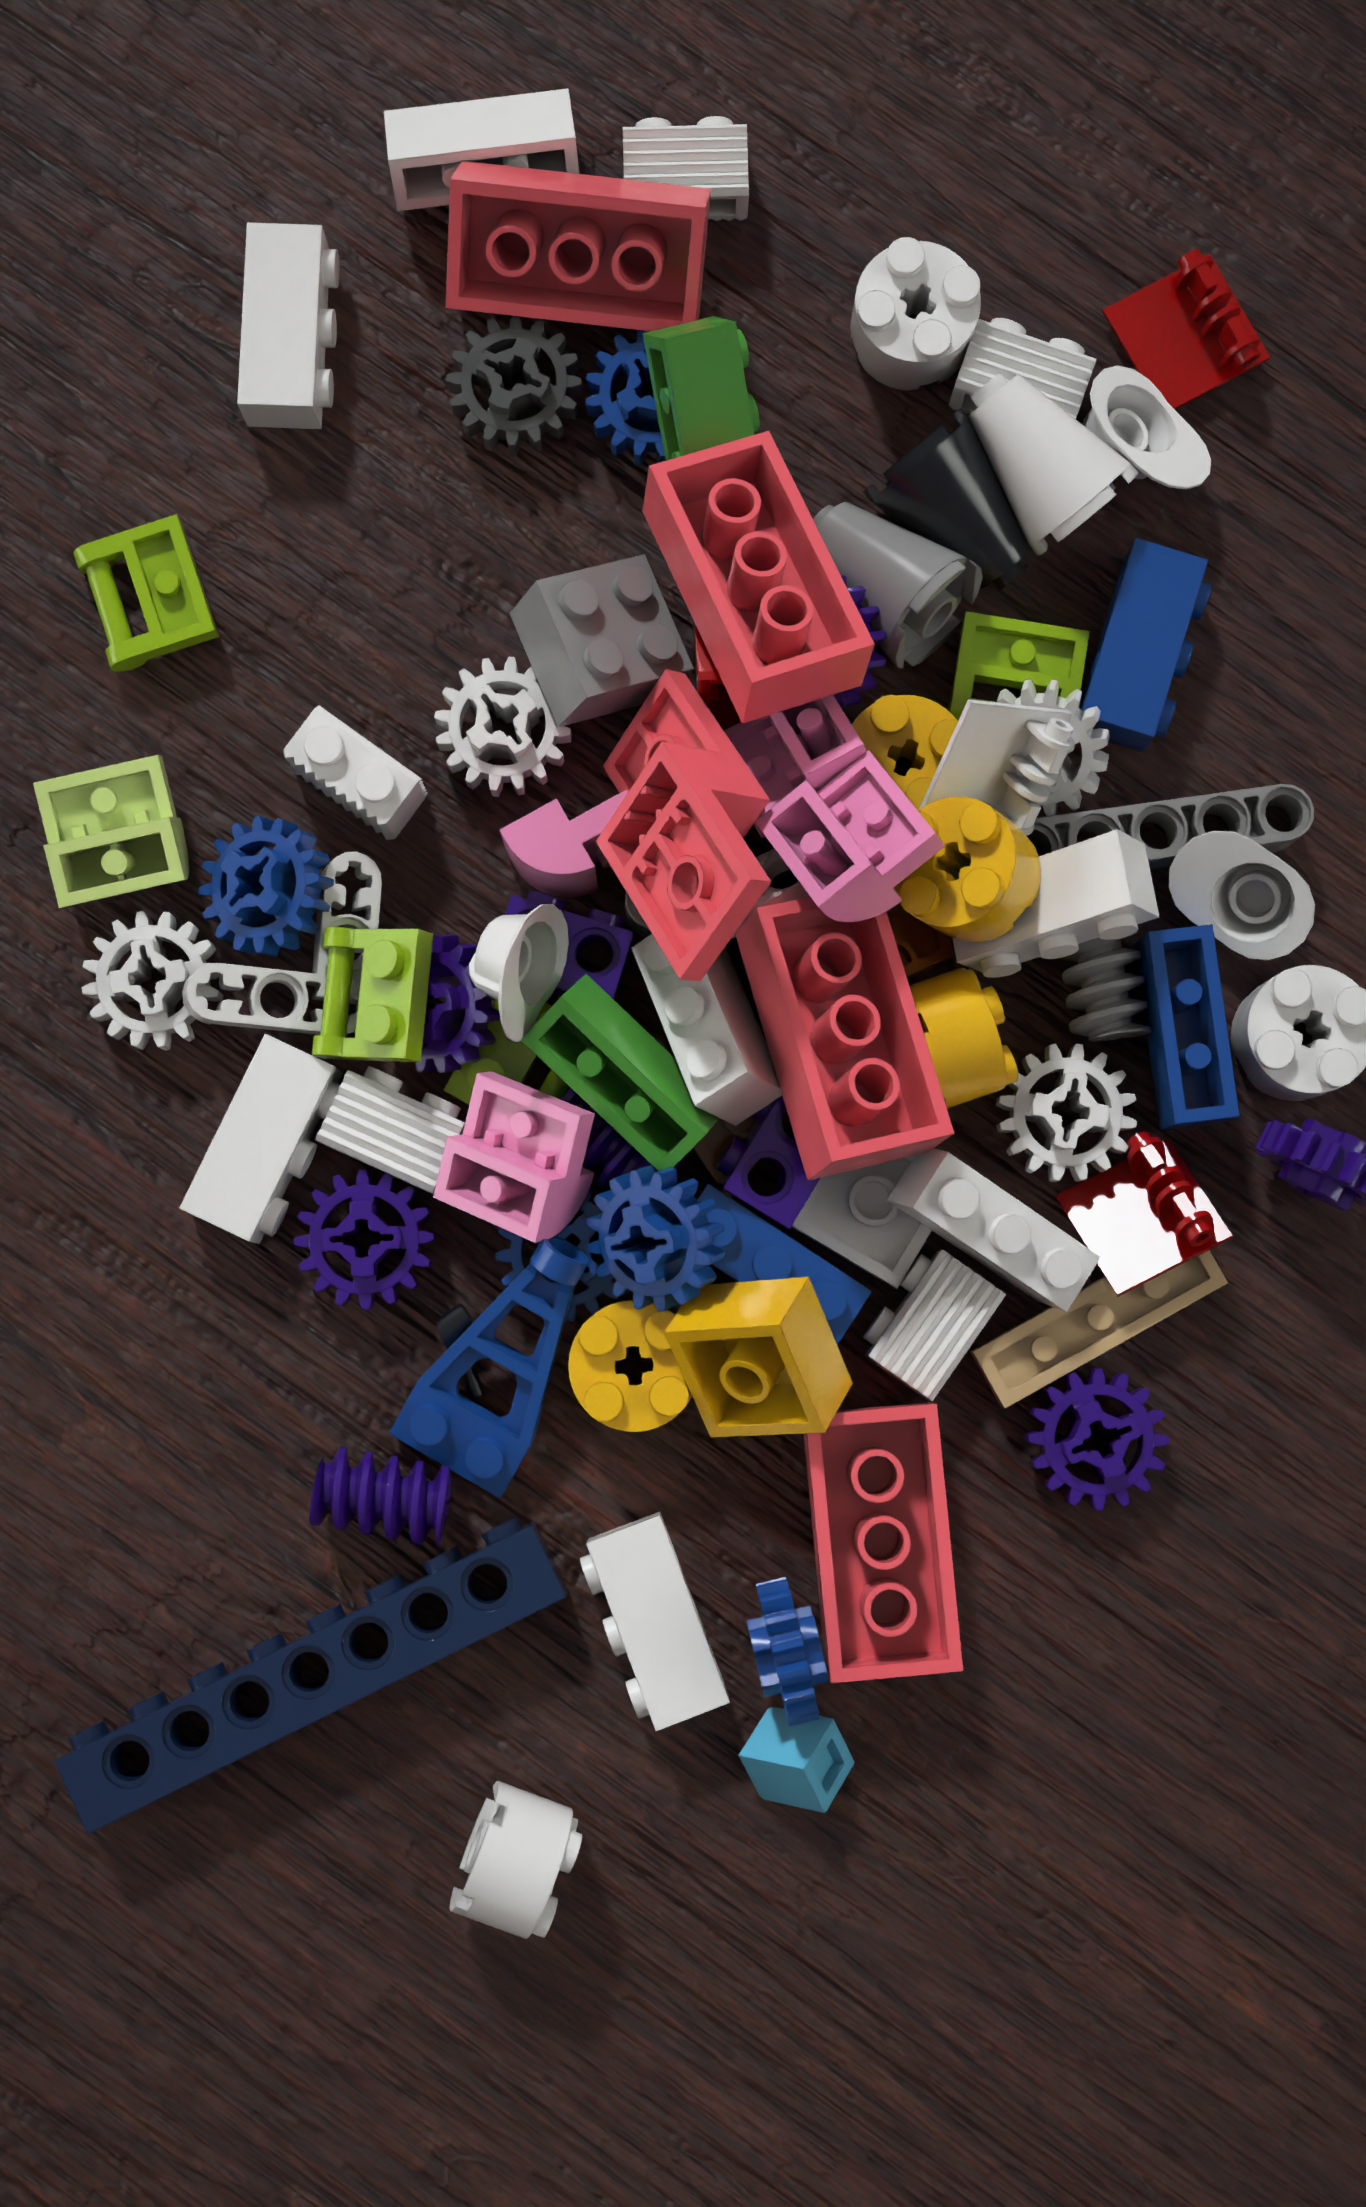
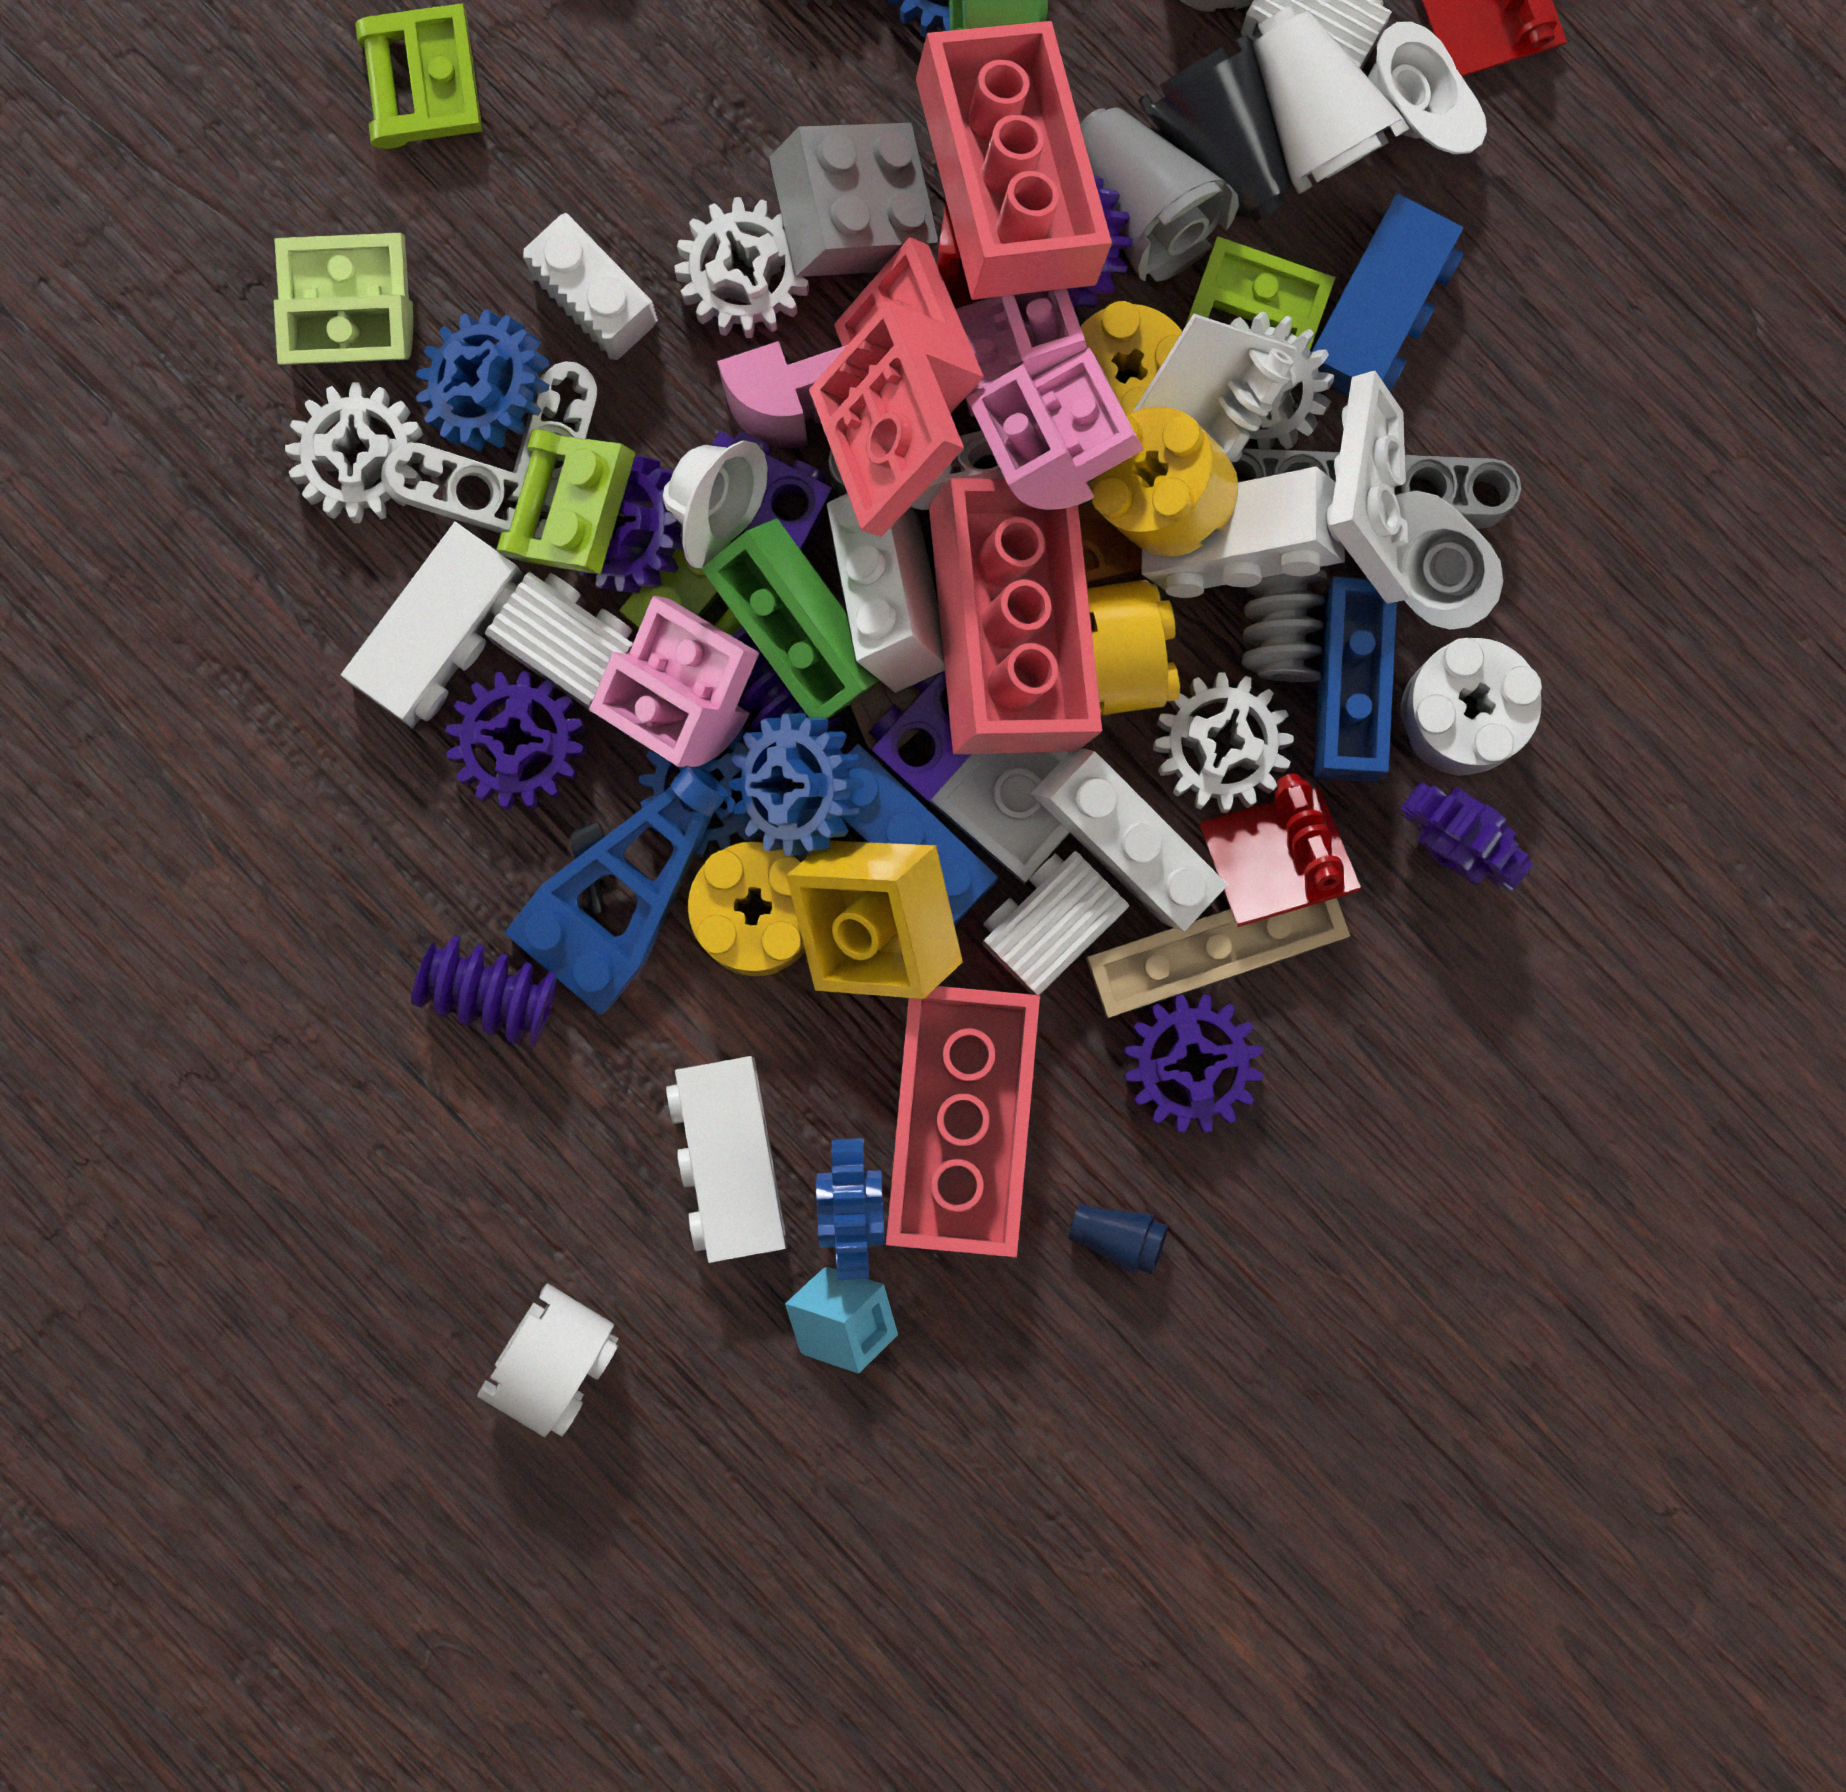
camera: 10 degrees right, 0 degrees up
(108, 1790) = (168, 1225): dark blue brick -> none
(1057, 1623) = (1120, 1236): none -> dark blue cone
(1164, 816) = (1366, 471): none -> white wing

